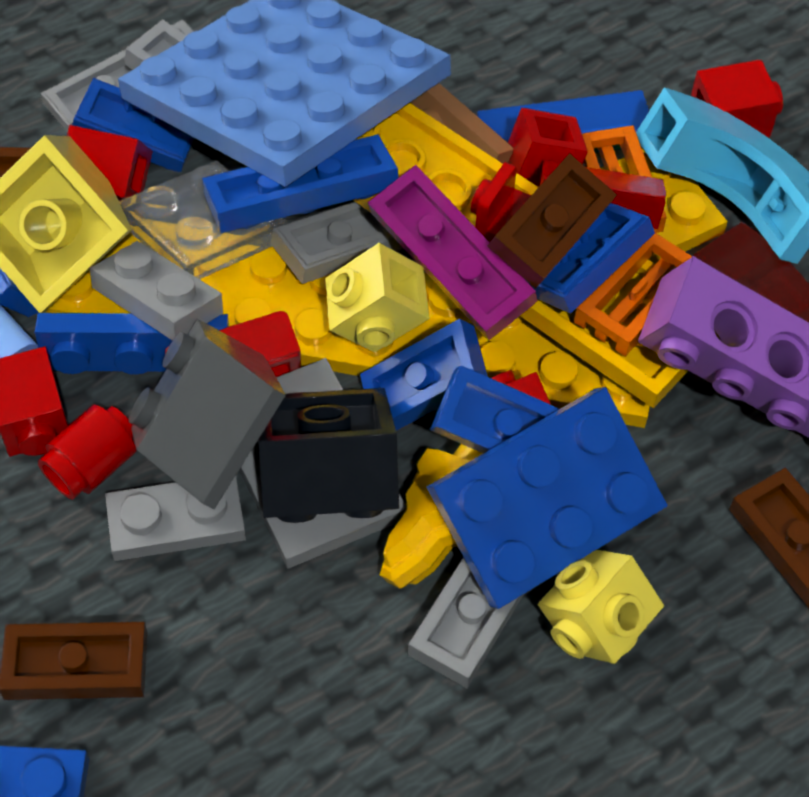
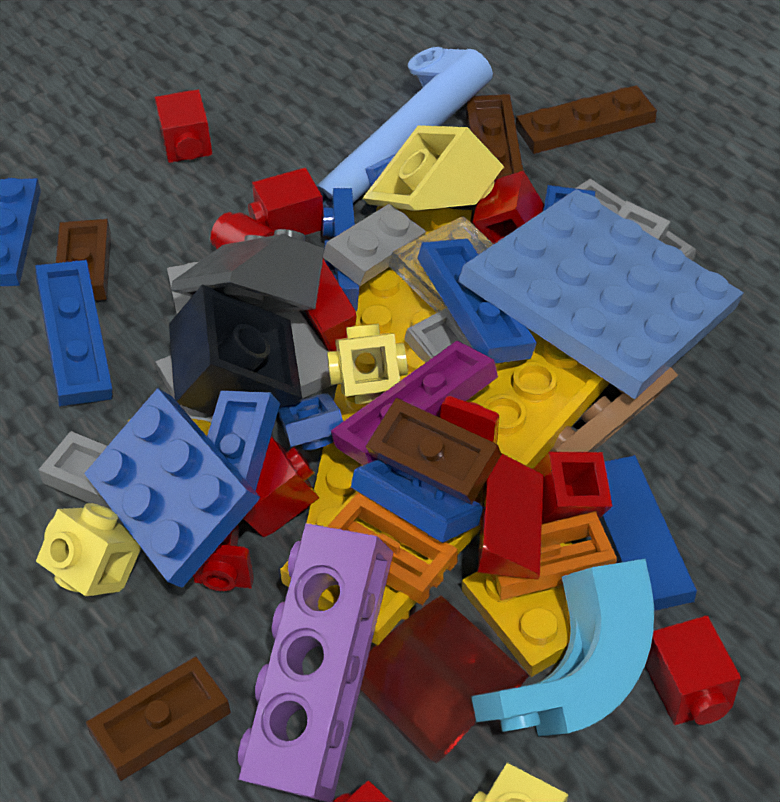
camera: 90 degrees right, 10 degrees down
(233, 651) = (73, 333): none -> blue plate

